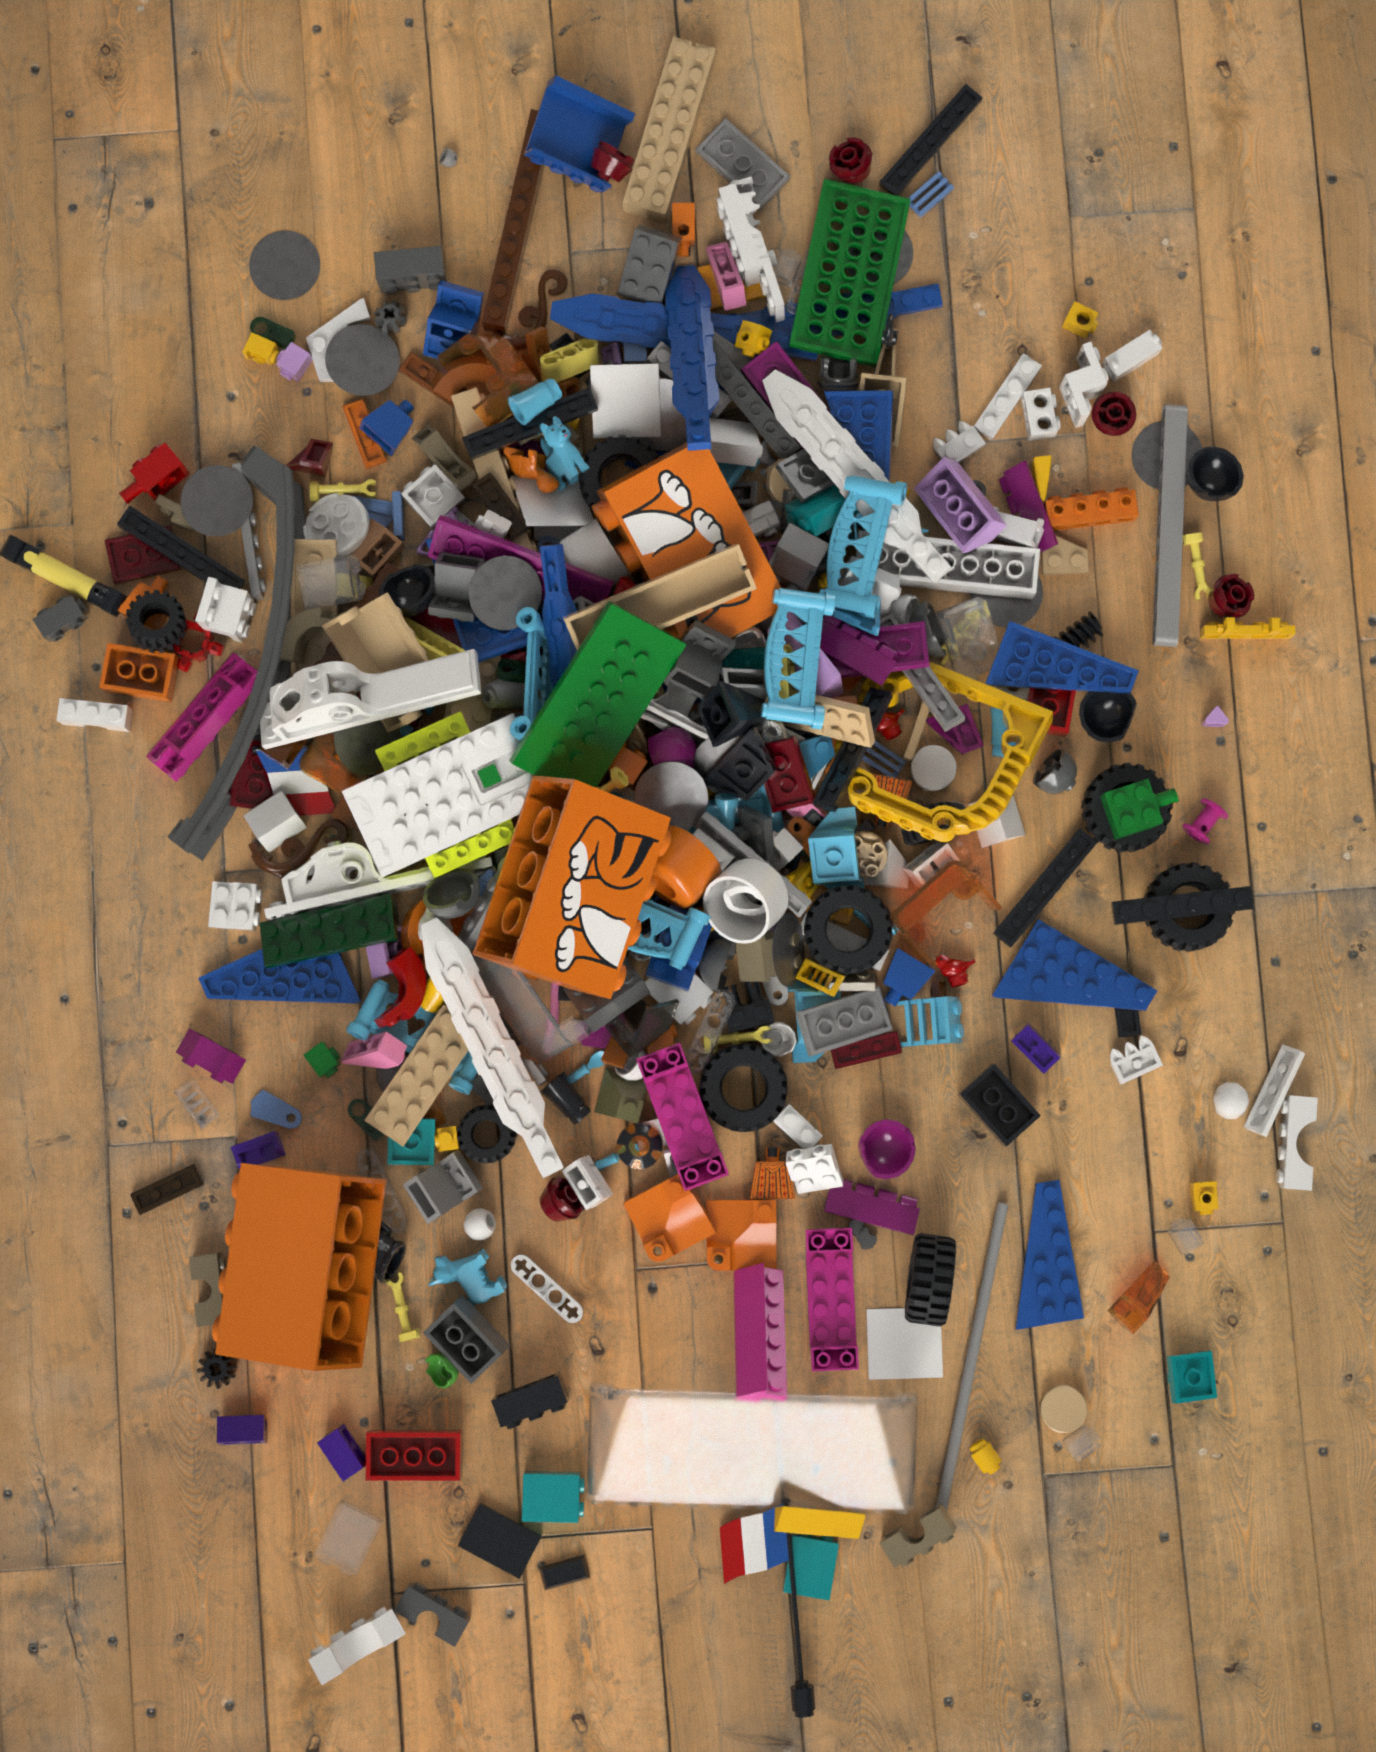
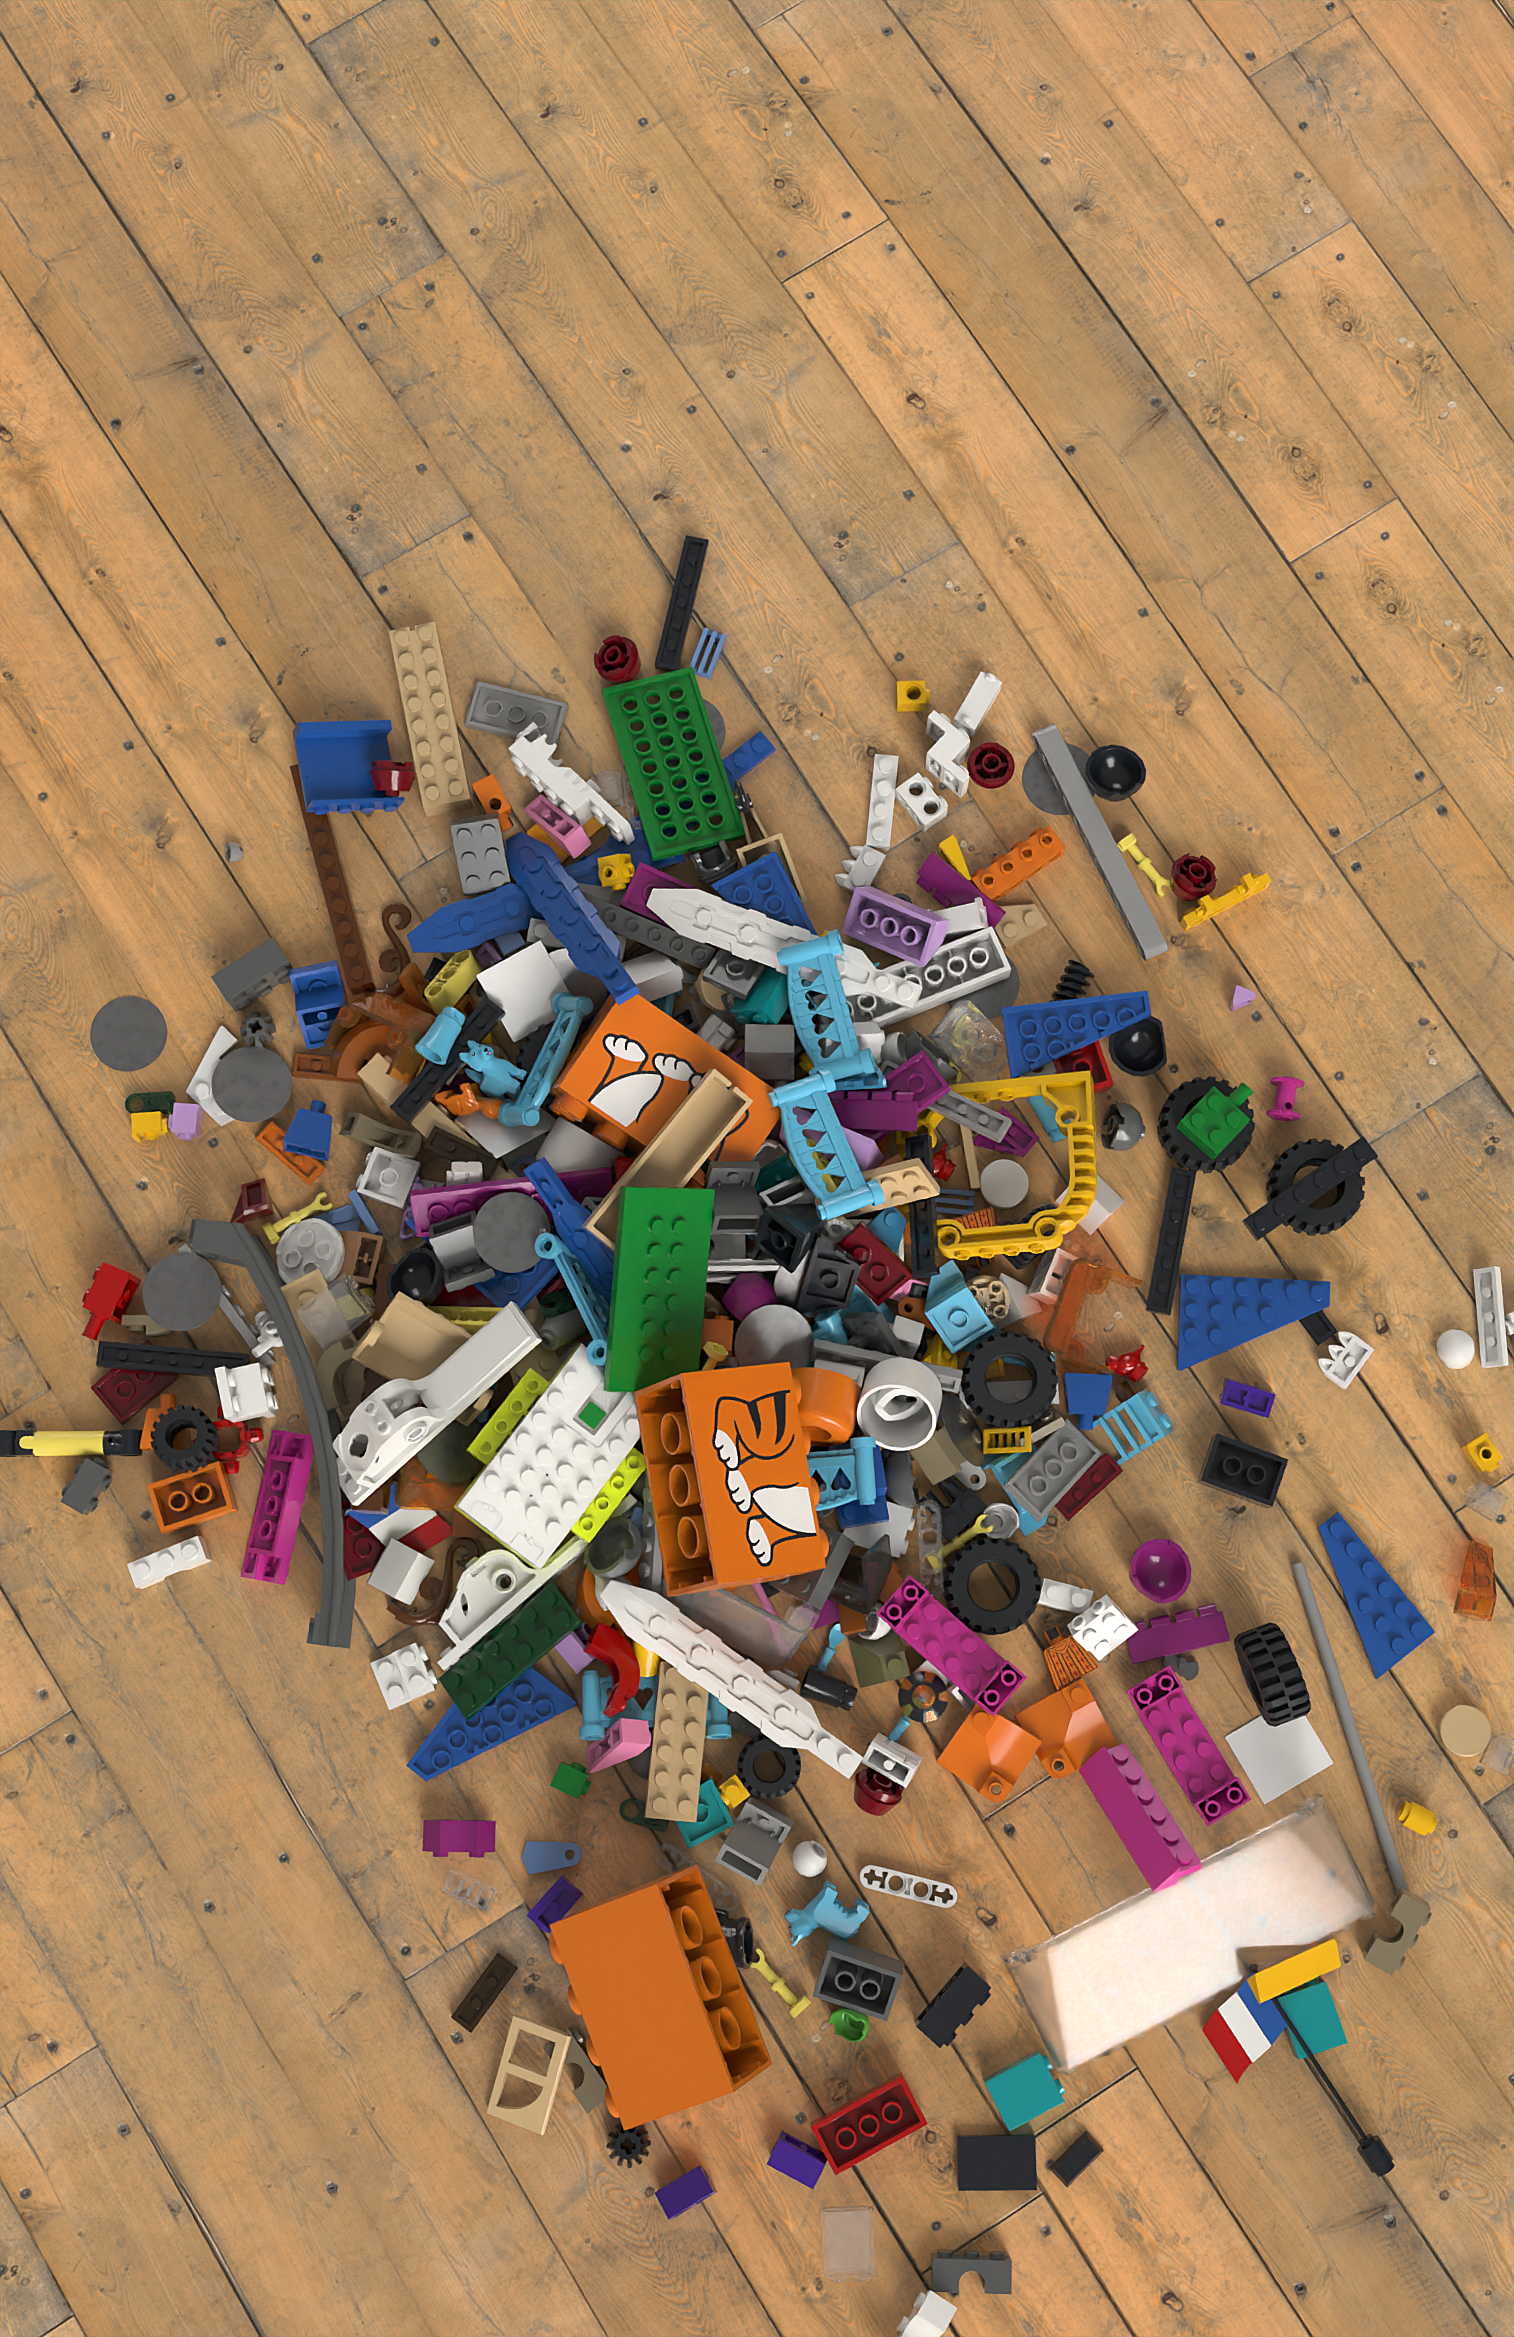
camera: 25 degrees left, 5 degrees down
(158, 1305) = (536, 2114): none -> tan window
(265, 576) = (268, 1332): none -> white piece
(650, 436) = (569, 1011): none -> medium azure piece

